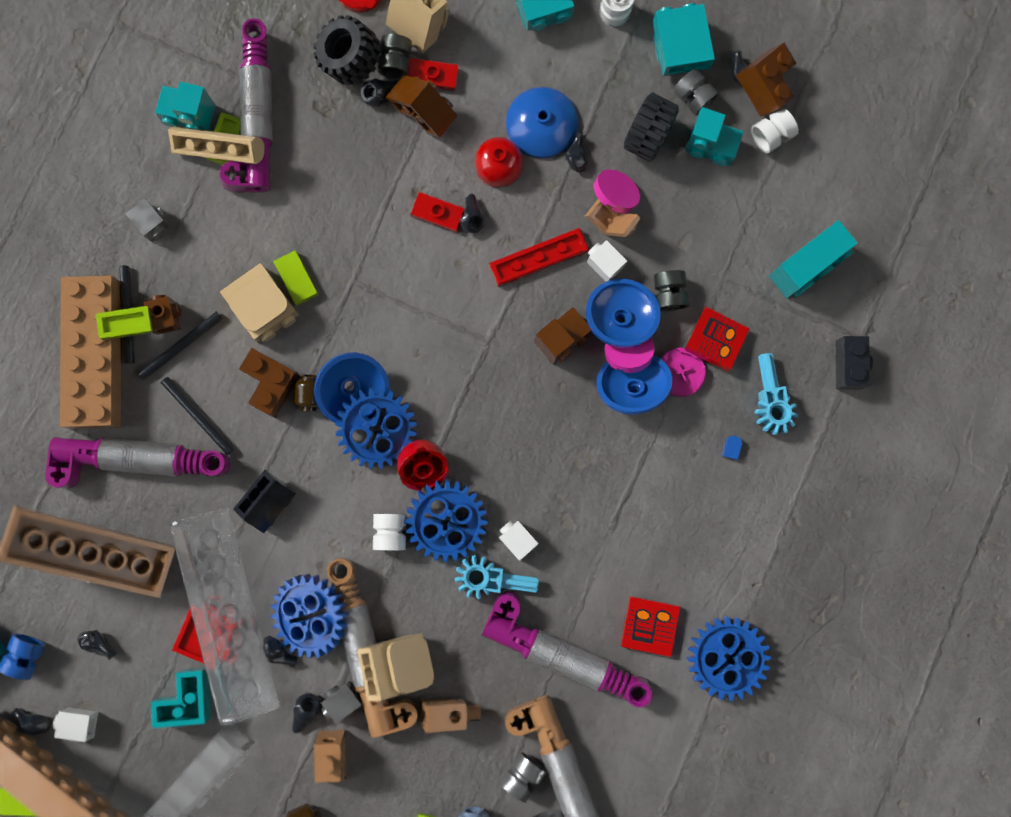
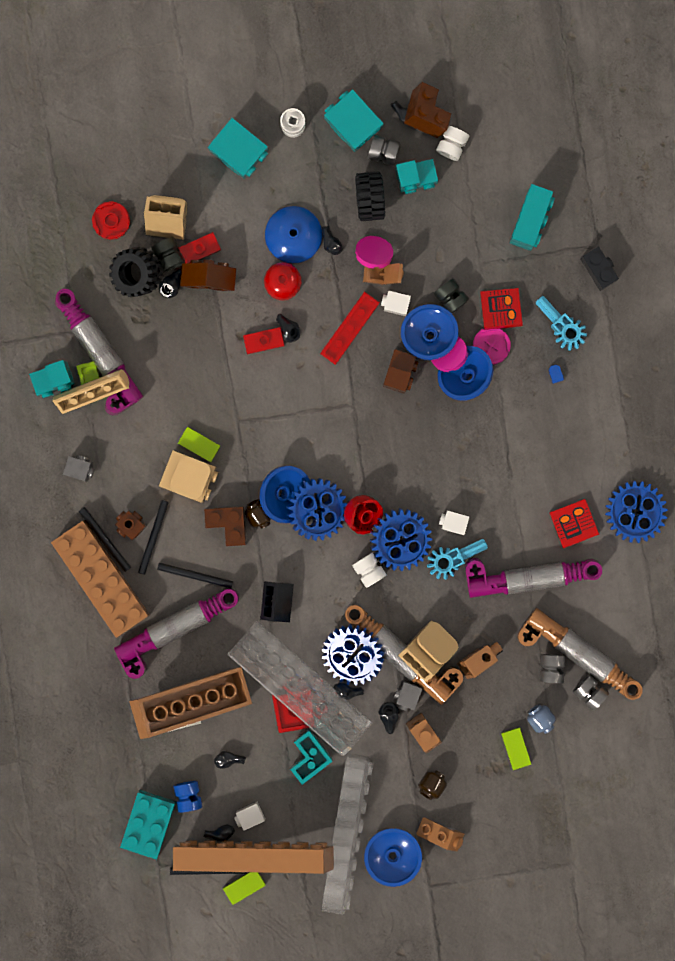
camera: 25 degrees left, 5 degrees up
(124, 323) = (113, 545): lime tile -> none

